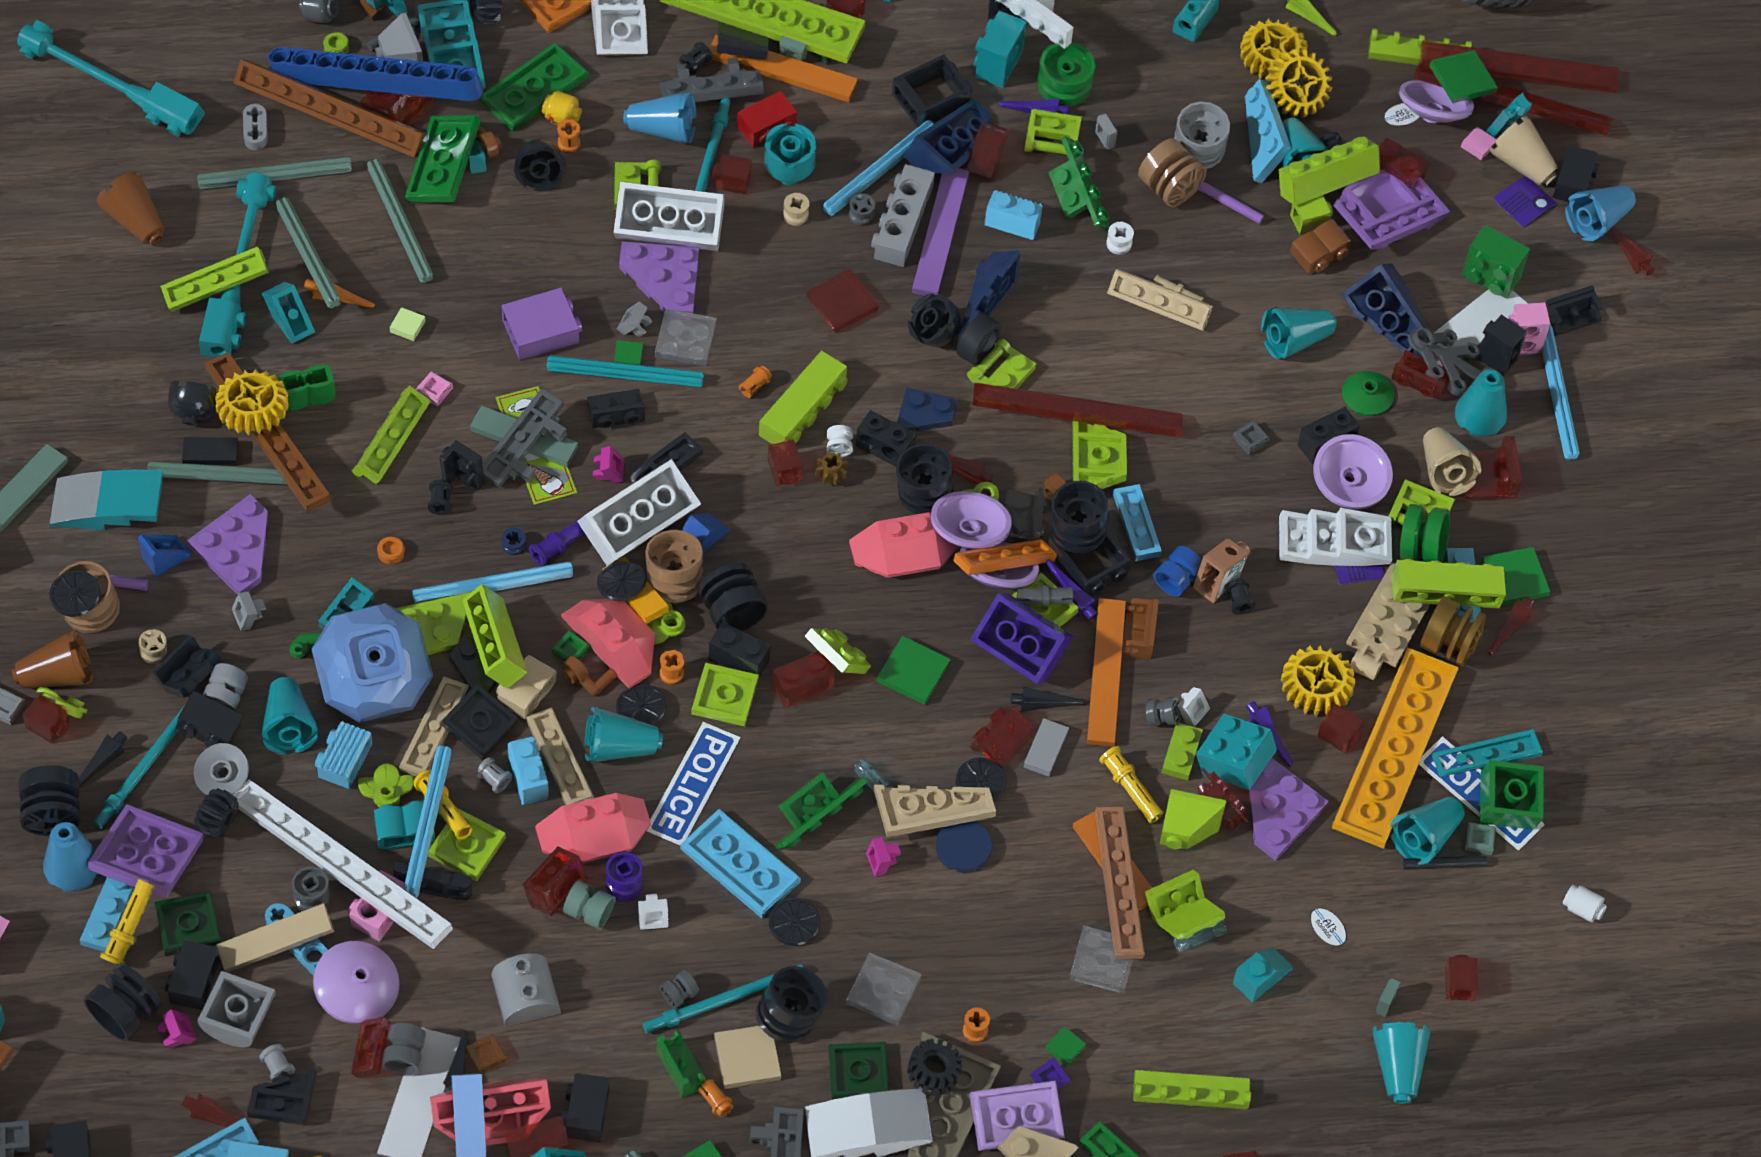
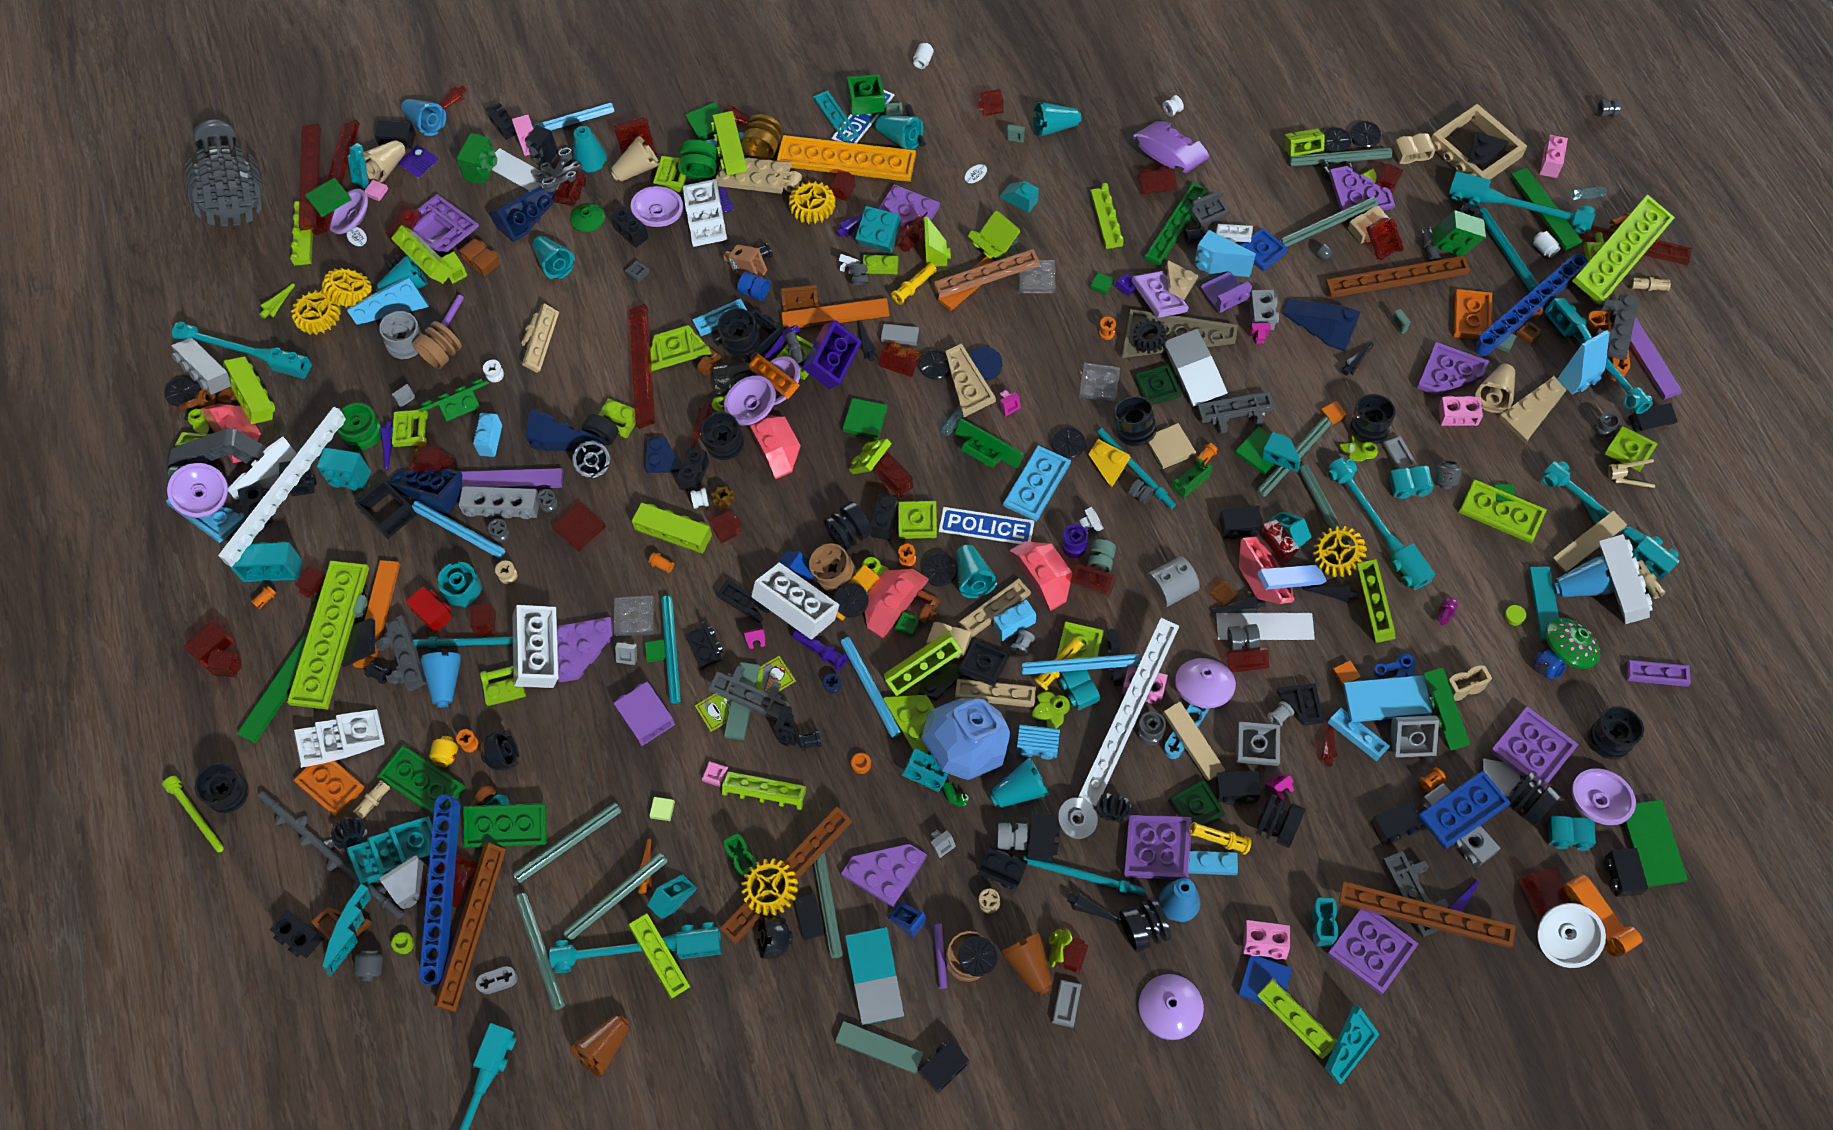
camera: 95 degrees left, 5 degrees up
(526, 33) = (371, 799): none -> tan pin
(745, 963) = (1109, 460): none -> yellow wing
(887, 263) = (544, 496): none -> dark grey wheel

